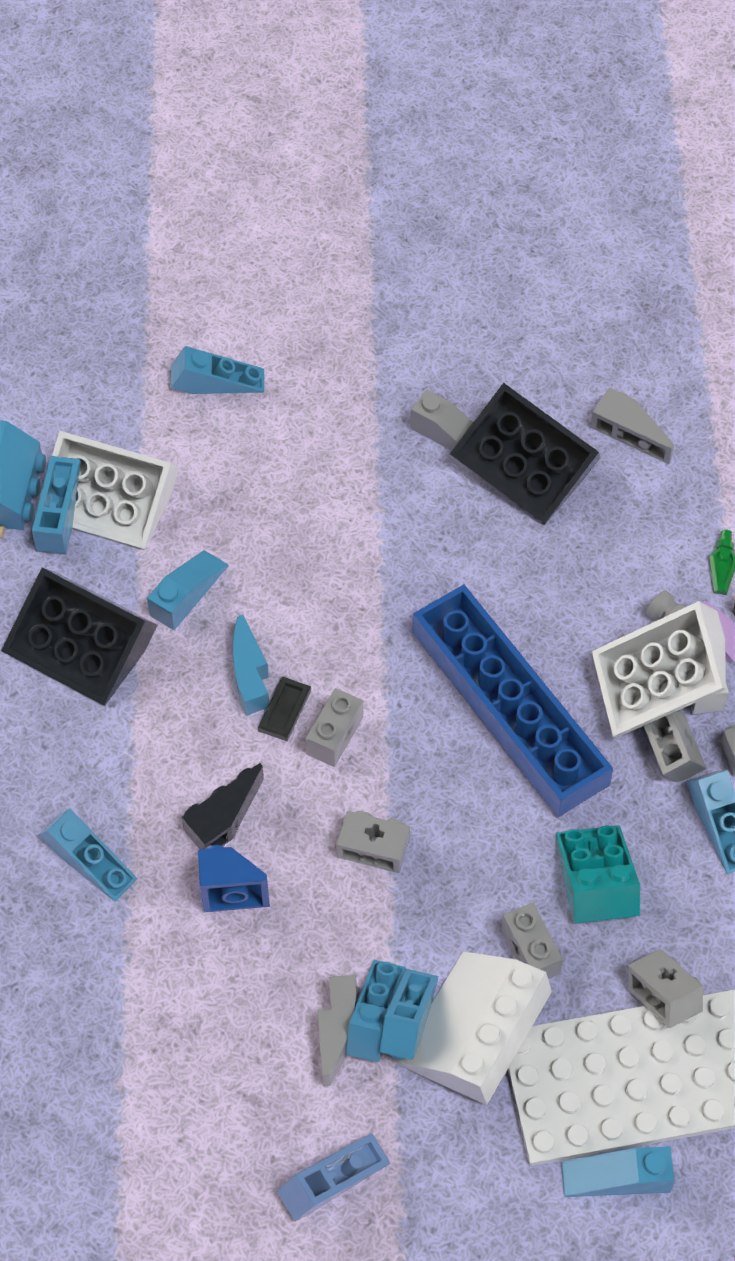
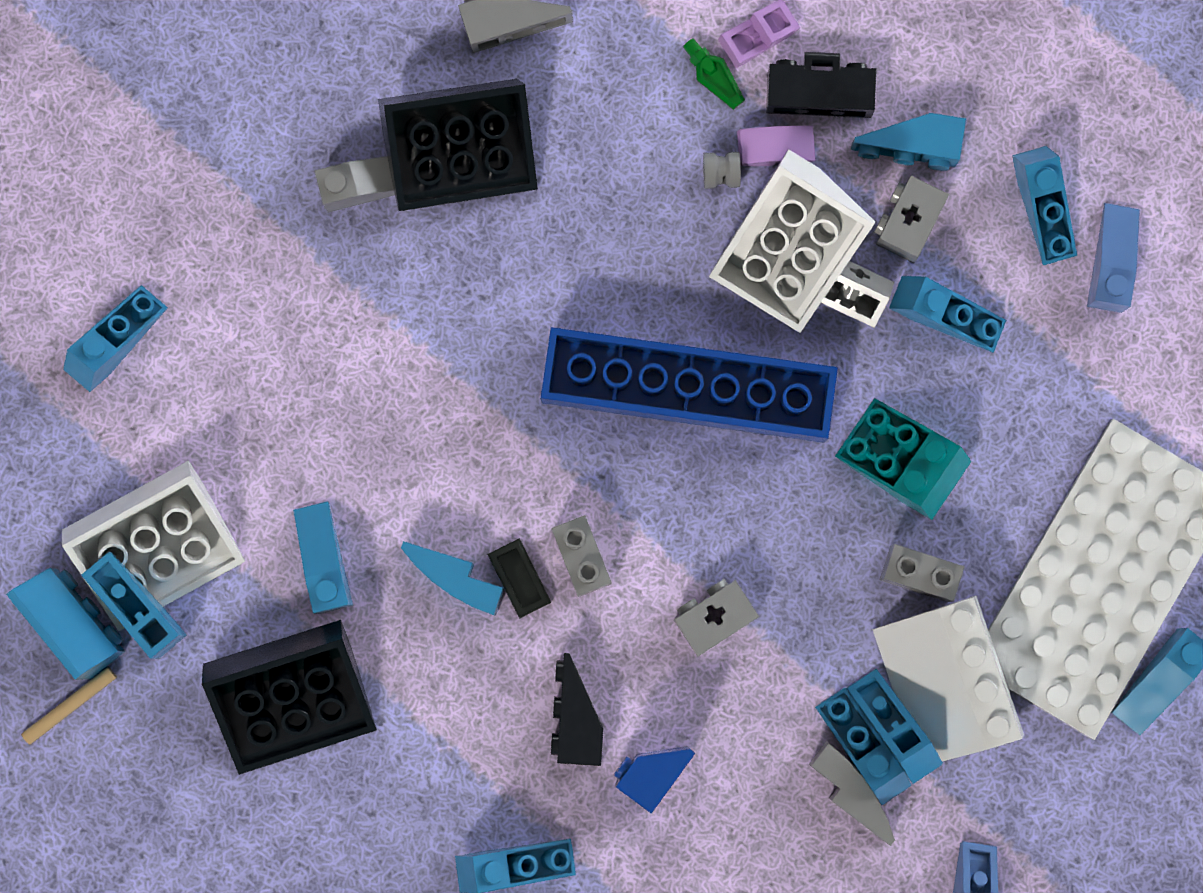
camera: 45 degrees left, 25 degrees up
(665, 988) = (1071, 515): light grey brick -> none

